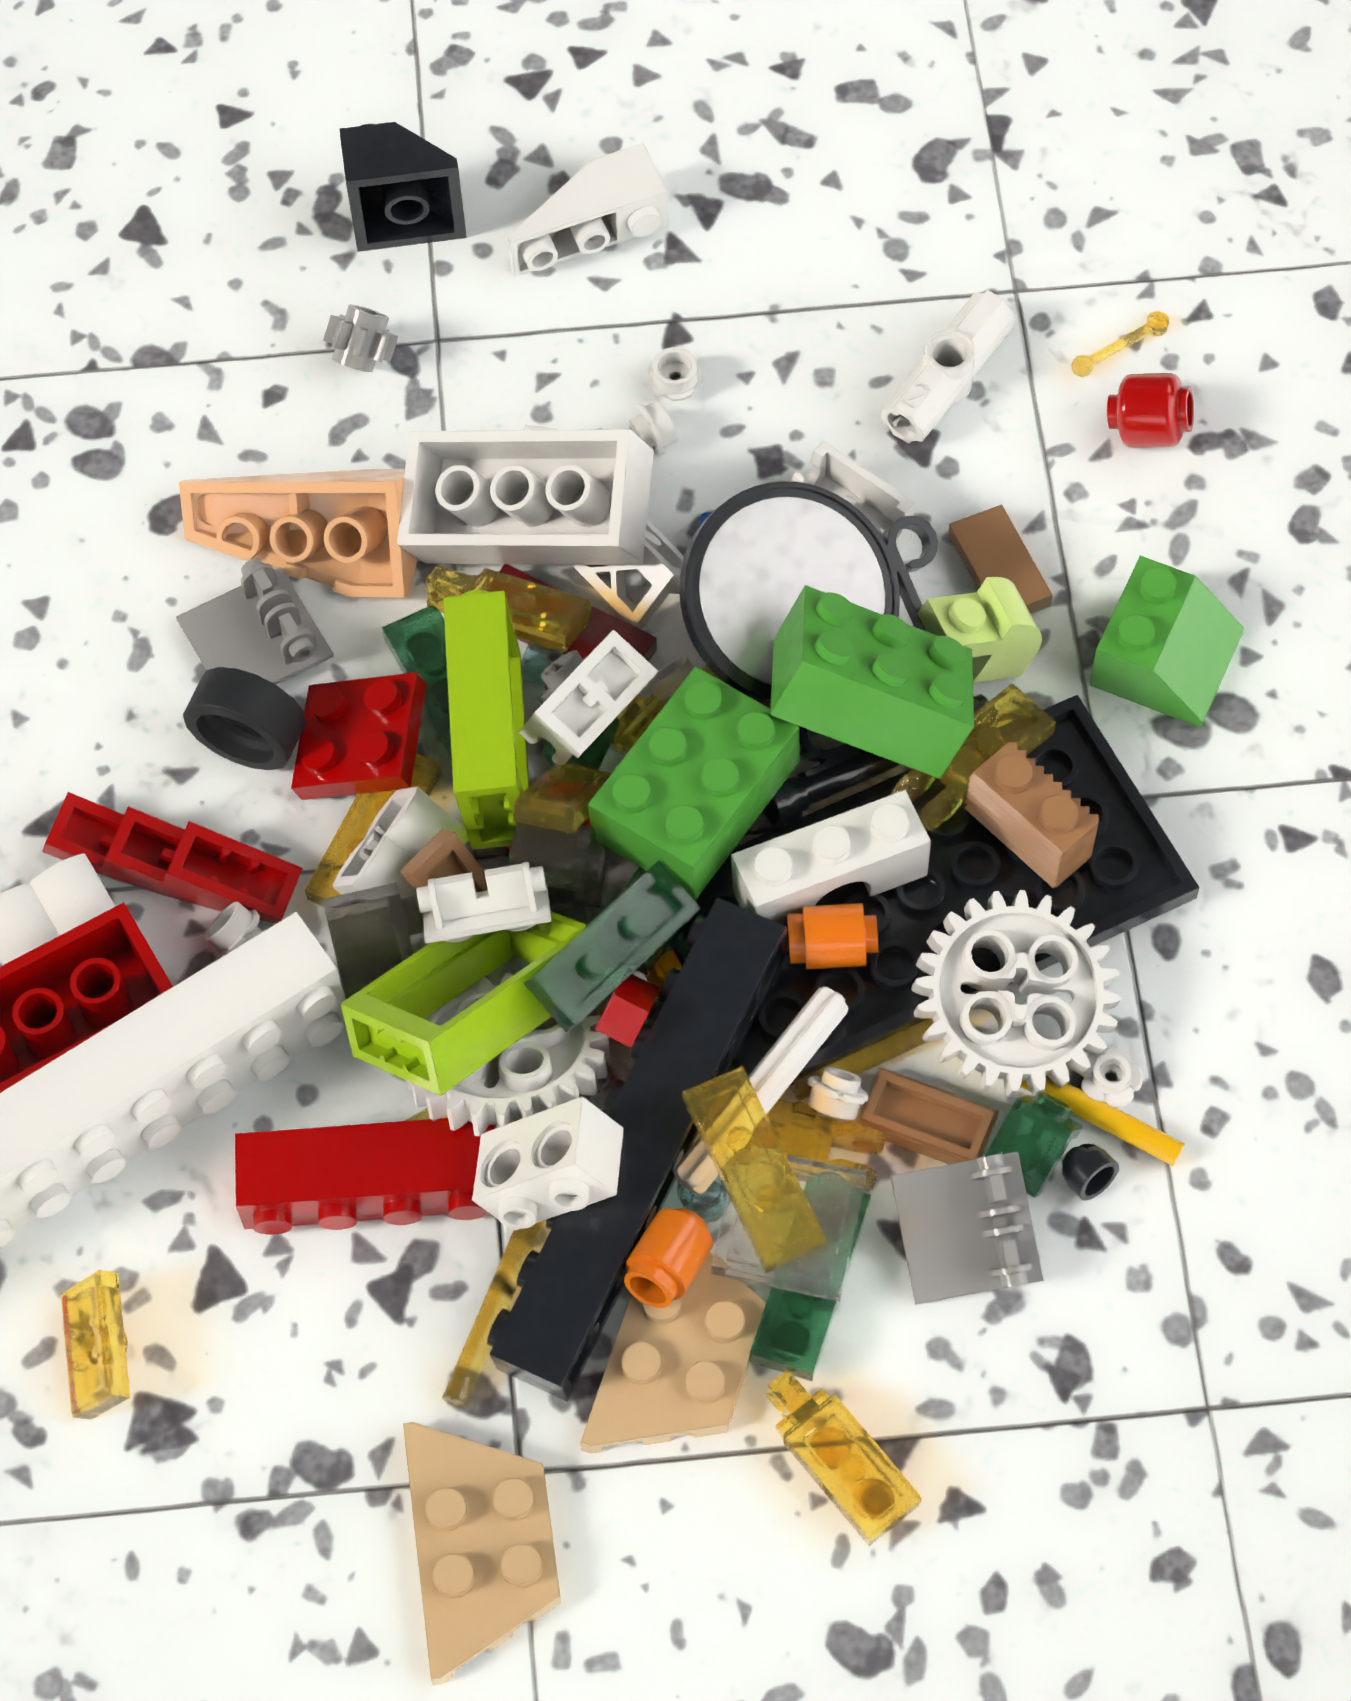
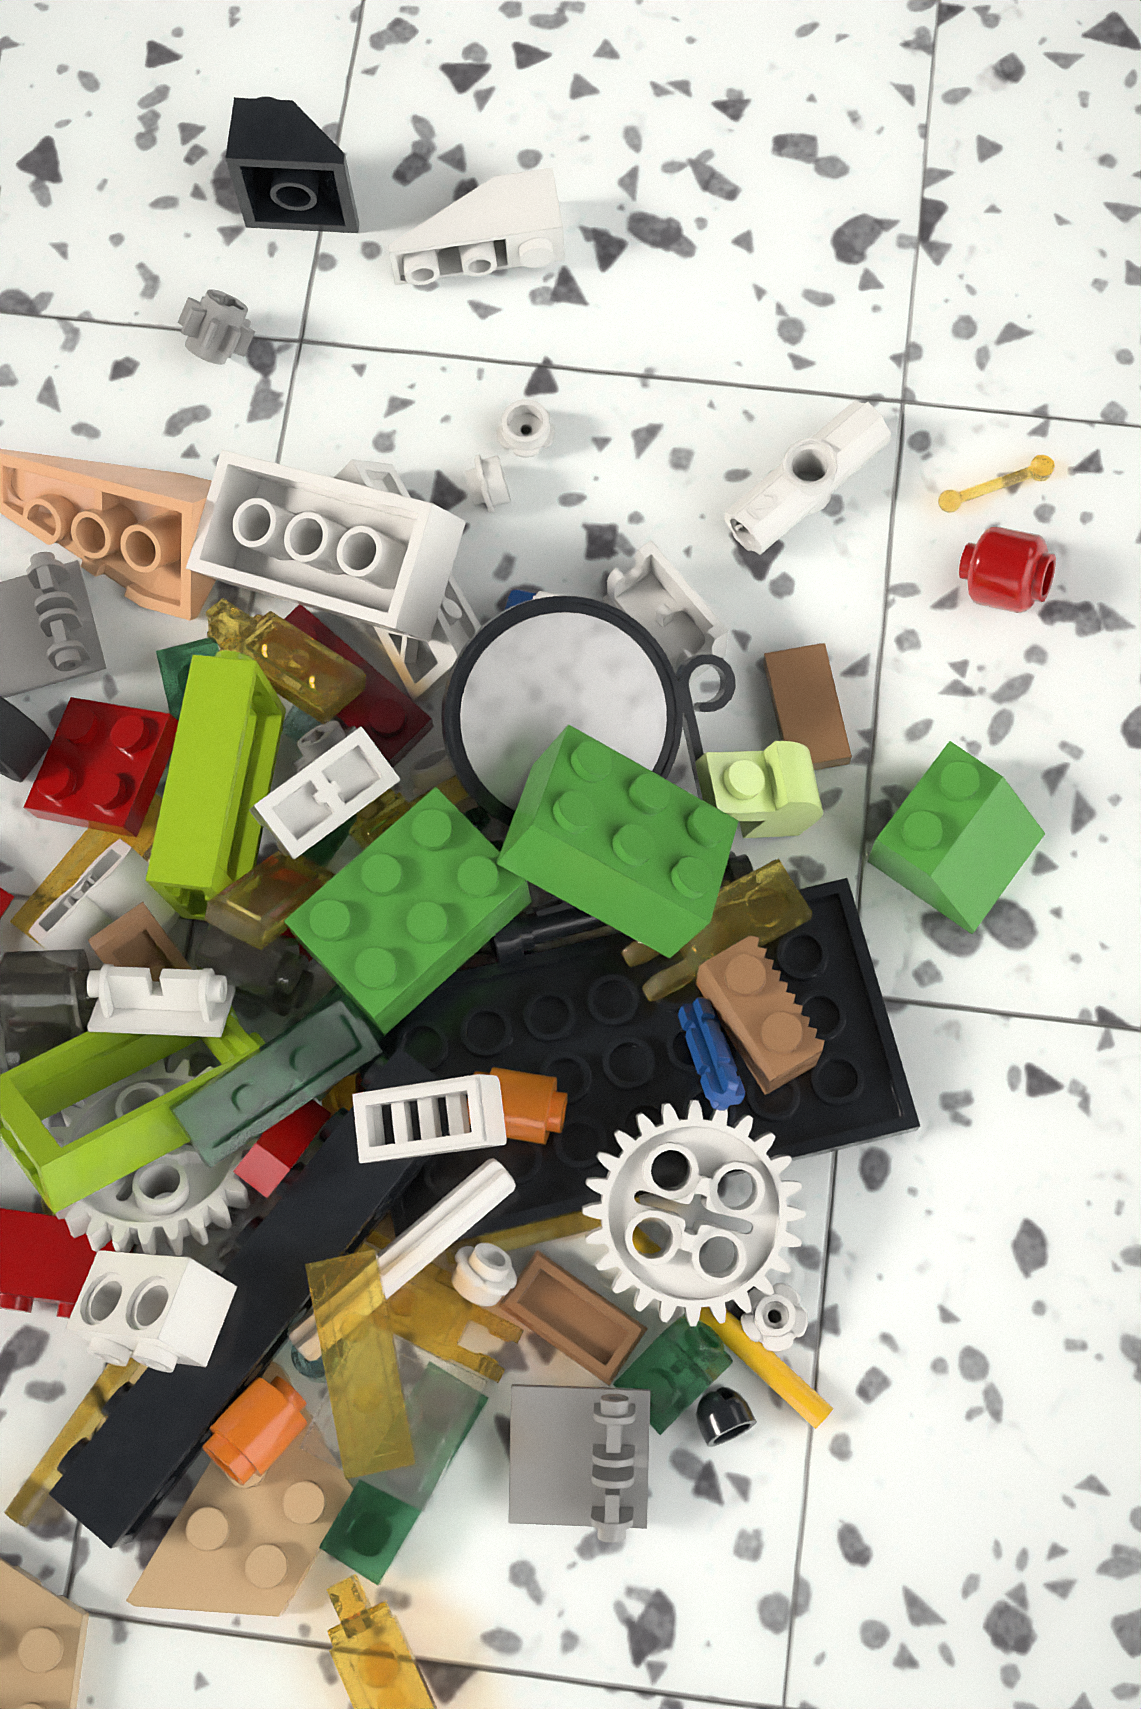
camera: 15 degrees right, 10 degrees up
(774, 916) = (484, 1110): none -> white slope
(869, 844) = (564, 1015): white arch -> none
(998, 853) = (711, 1054): none -> blue axle

